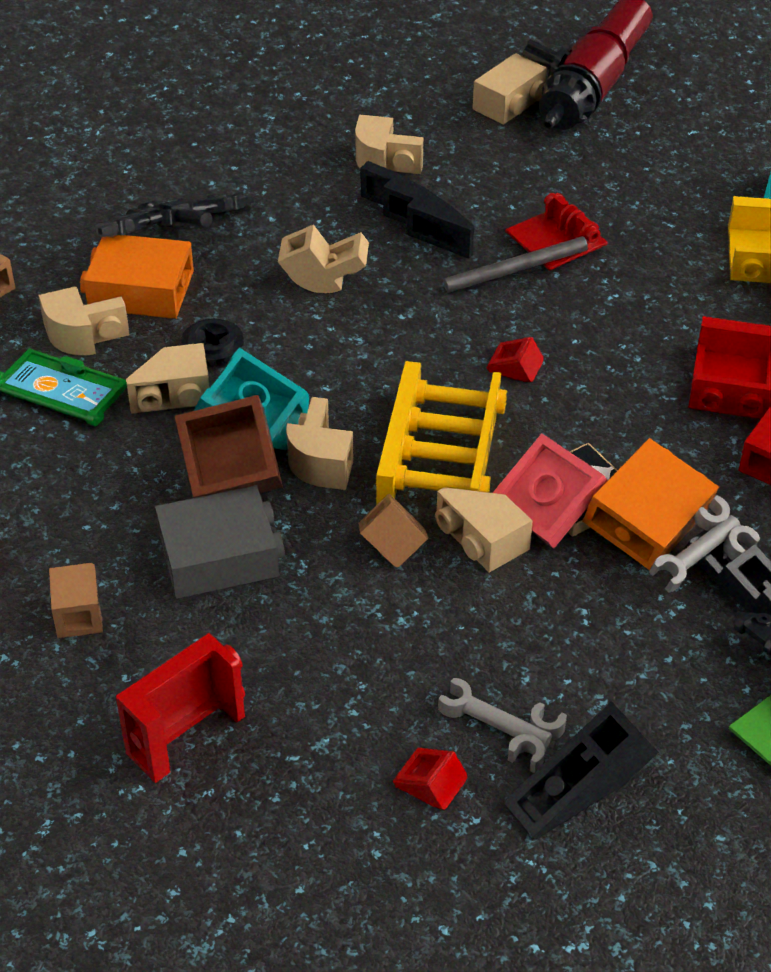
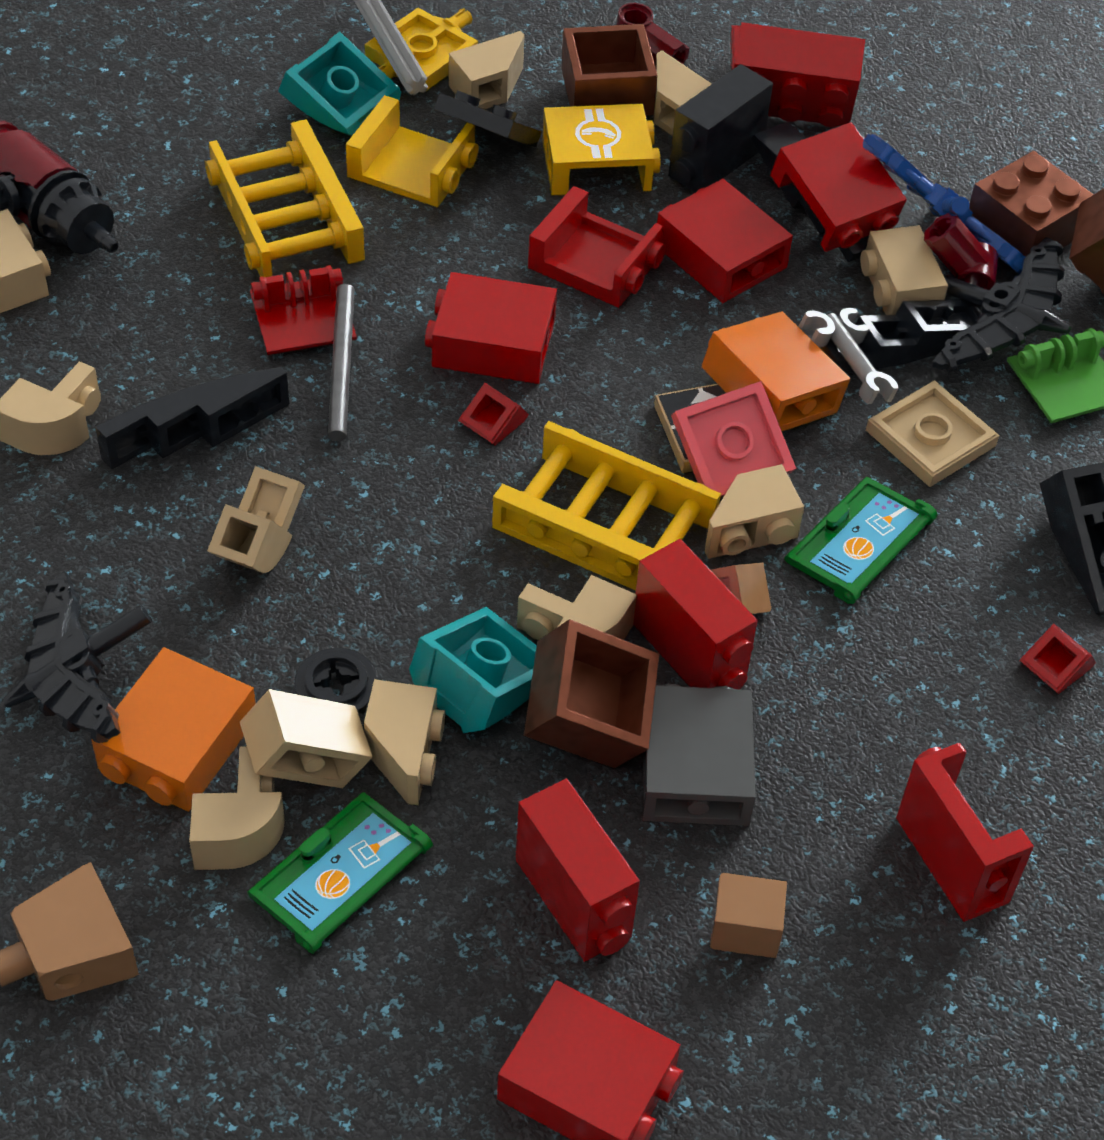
camera: 75 degrees left, 5 degrees up
(70, 482) = (576, 870): none -> red brick
(138, 321) = (305, 739): none -> tan brick
(330, 498) = (693, 619): none -> red brick
(481, 605) = (868, 534): none -> door
(528, 737) = (1020, 565): light grey bar -> none
(601, 332) = (492, 327): none -> red brick
(661, 639) = (932, 433): none -> tan tile
(670, 217) = (315, 177): none -> yellow fence

